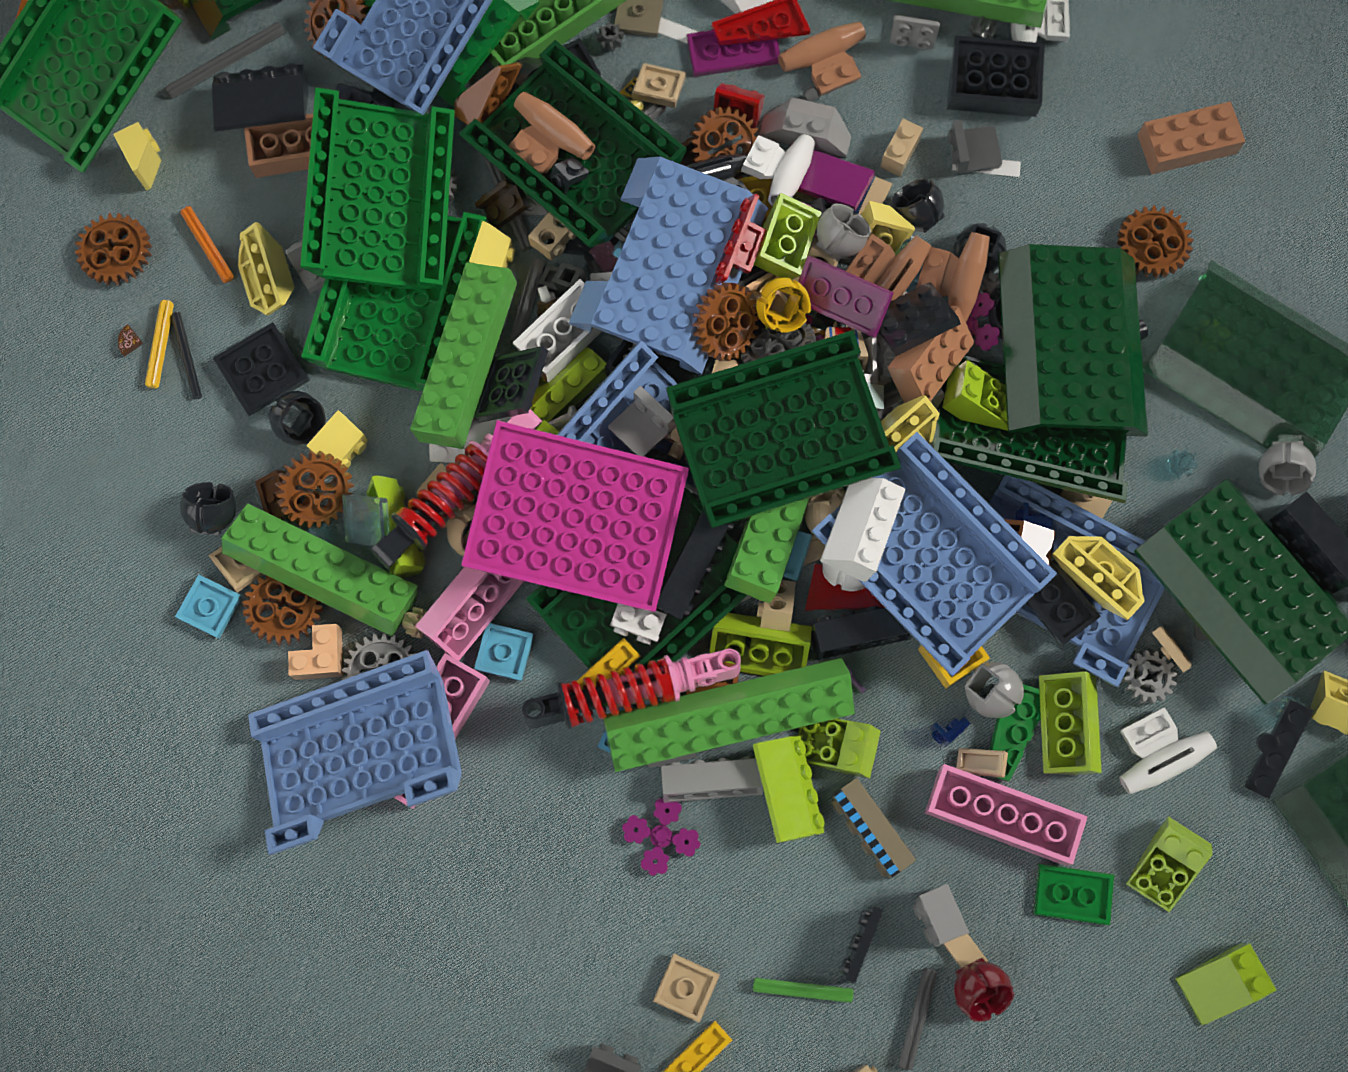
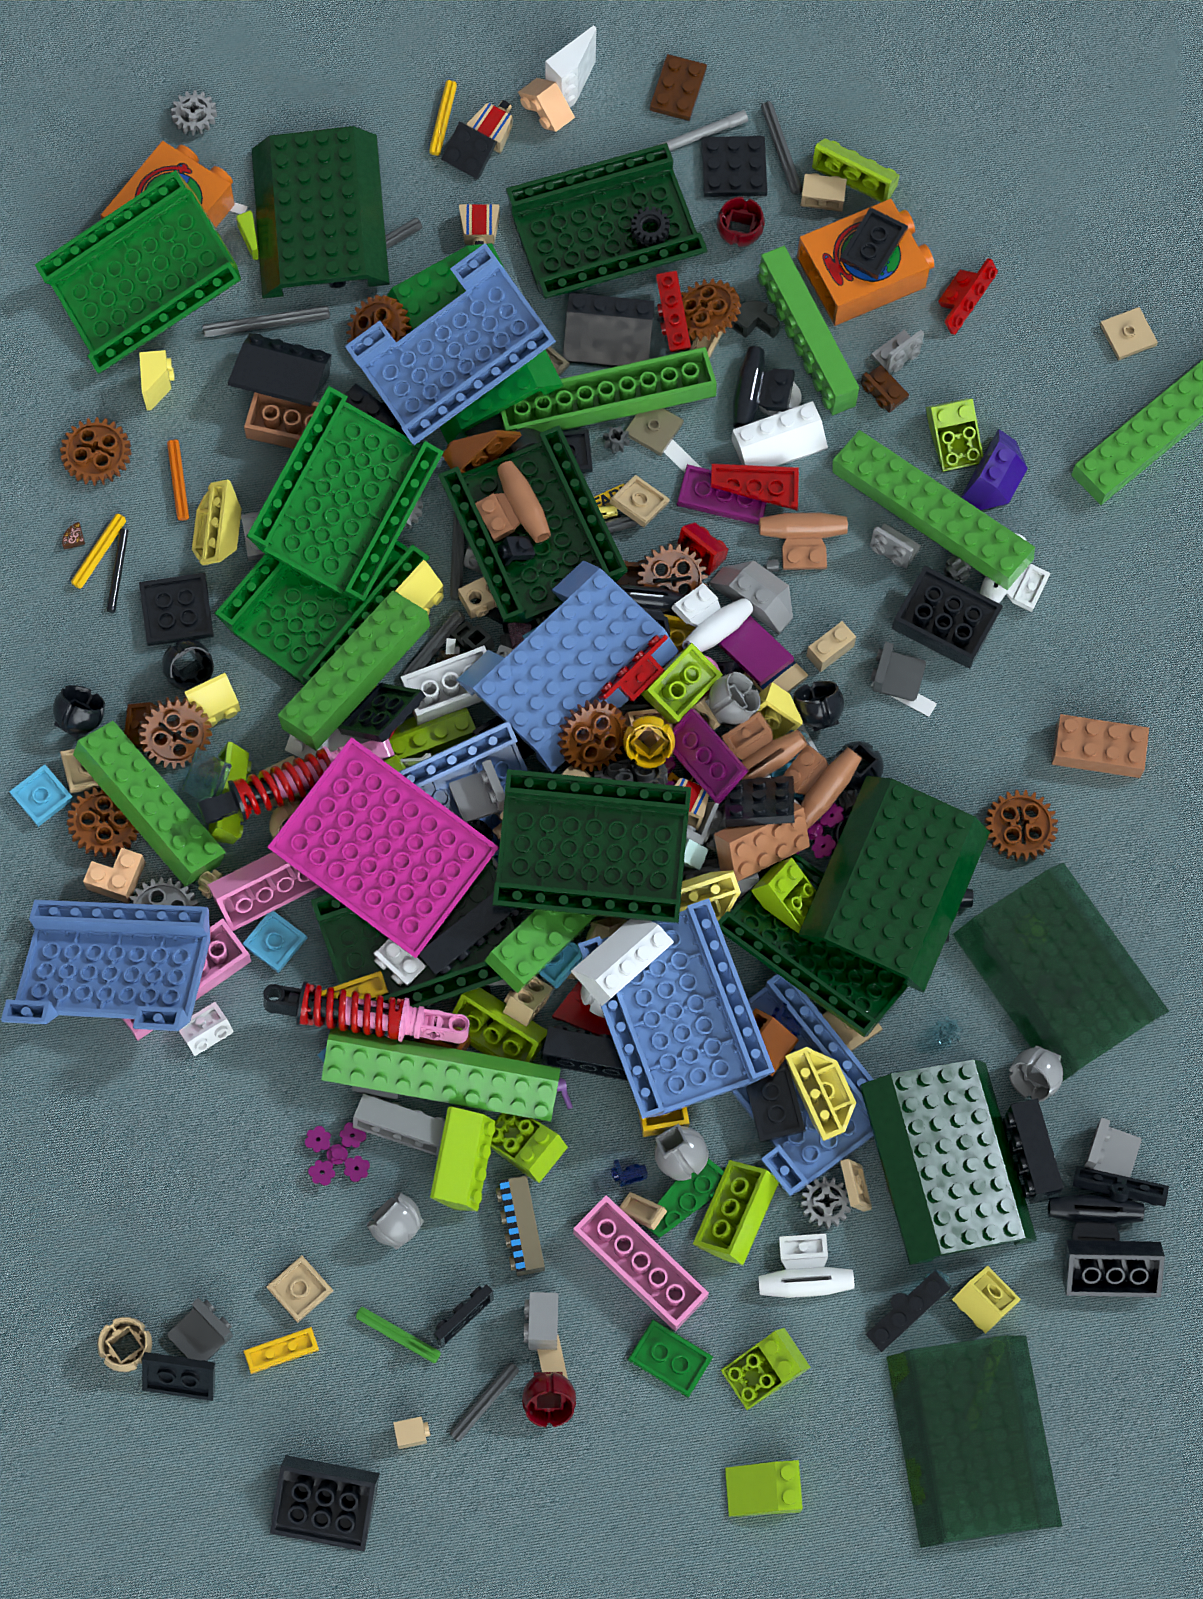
camera: 20 degrees right, 5 degrees down
(477, 767) = (206, 1029): none -> white bracket
(503, 203) = (450, 551): dark brown bracket -> none
(751, 879) = (396, 1221): none -> light grey piece

